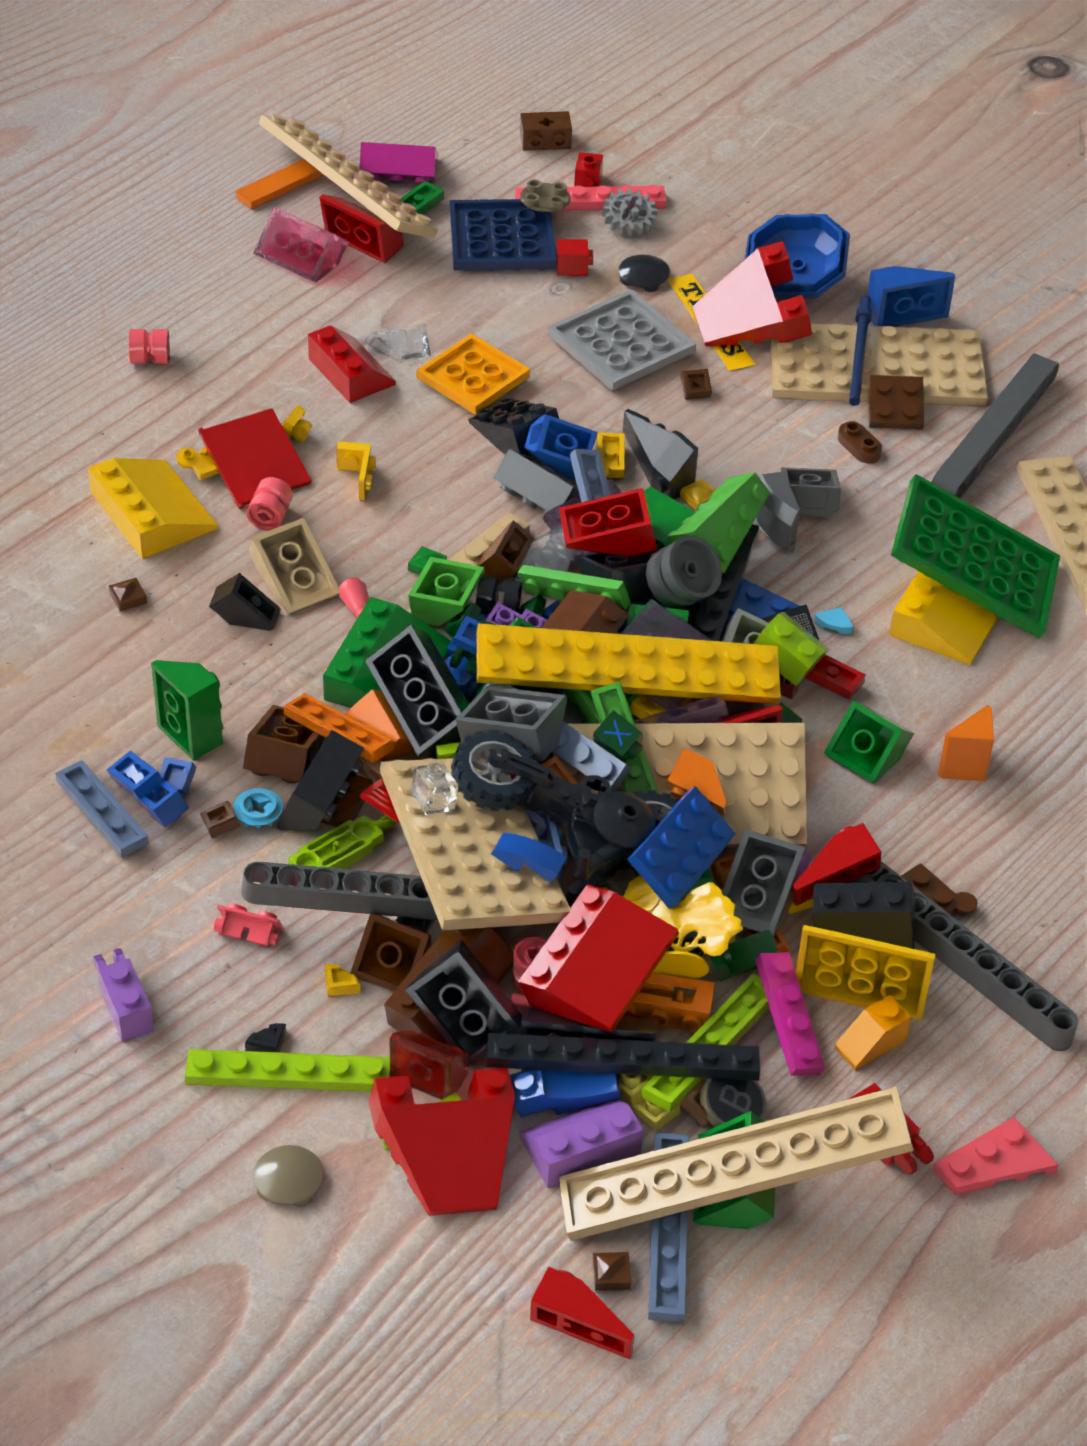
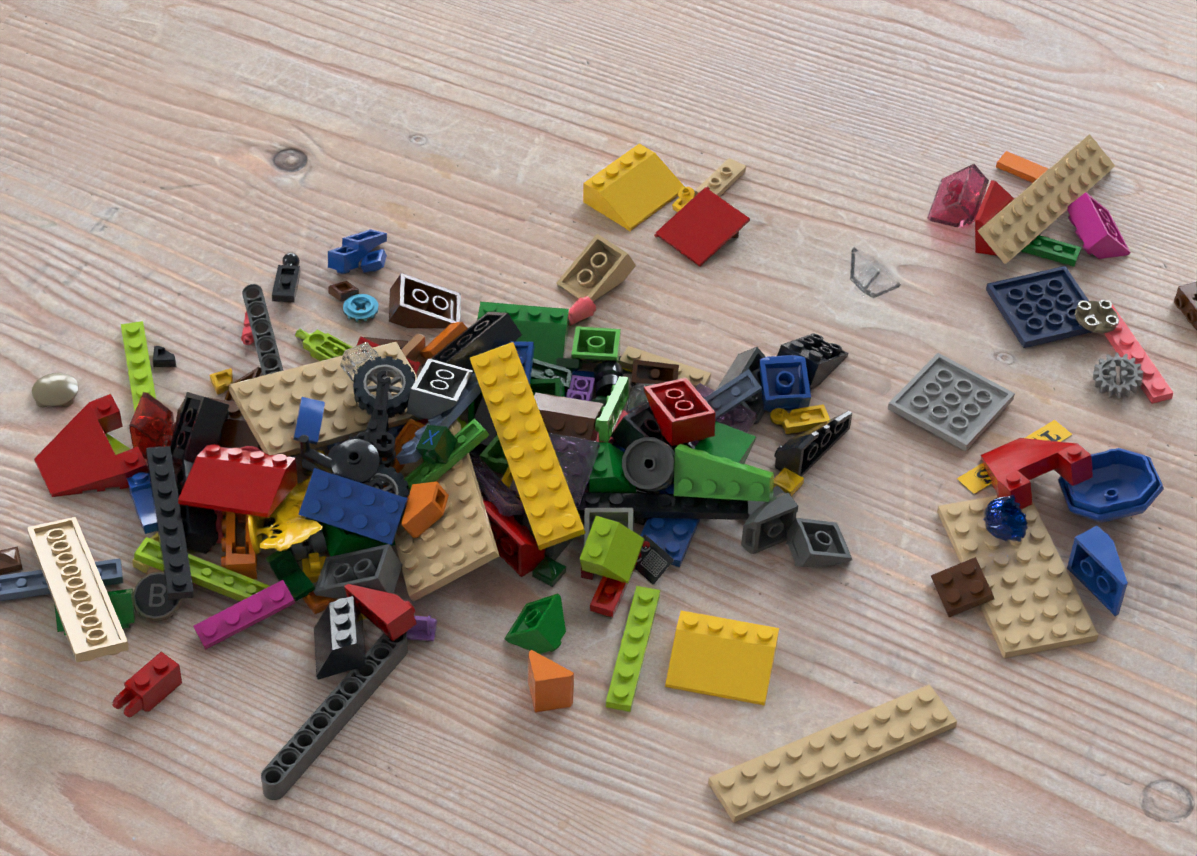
camera: 75 degrees right, 0 degrees up
(102, 808) = (332, 235): sand blue plate -> none
(124, 996) = (176, 279): medium lavender hinge -> none
(128, 594) = (540, 201): reddish brown tile -> none
(149, 346) = (794, 147): coral wheel -> none
(168, 425) = (723, 177): none -> tan plate
(170, 874) = (287, 279): none -> black plate
(188, 706) = (416, 241): green slope -> none
(244, 604) = (547, 257): black slope -> none
(269, 503) = (662, 244): coral wheel -> none
(296, 426) = (748, 238): yellow tile -> none
(322, 783) = (379, 322): black slope -> none
(324, 718) = (435, 322): orange tile -> none
(347, 364) = (830, 252): red slope -> none
(357, 458) = (717, 286): yellow bracket -> none
(420, 559) = (638, 340): green tile -> none
(473, 373) = (861, 323): light orange plate -> none
(573, 257) = (1032, 349): red brick -> none
(583, 1140) = (108, 523): medium lavender slope -> none
(588, 170) = (1158, 341): red brick -> none
(644, 272) = (1051, 402): black dish -> none
(696, 384) = (920, 456): reddish brown tile -> none
(830, 339) = (1005, 519): none -> clear blue hair
(835, 620) = (675, 588): medium azure tile -> none
(859, 442) = (908, 571): reddish brown plate -> none
(862, 970) = (288, 644): yellow slope -> none
(863, 318) = (1058, 545): dark blue bar -> none
(874, 1033) = (243, 670): light orange slope -> none
(912, 674) = (633, 649): none -> lime plate
(932, 887) = (396, 691): reddish brown hinge -> none
(976, 556) = (764, 653): green plate -> none
(994, 1157) = (146, 760): coral wing -> none
(996, 425) = (968, 662): dark grey beam -> none

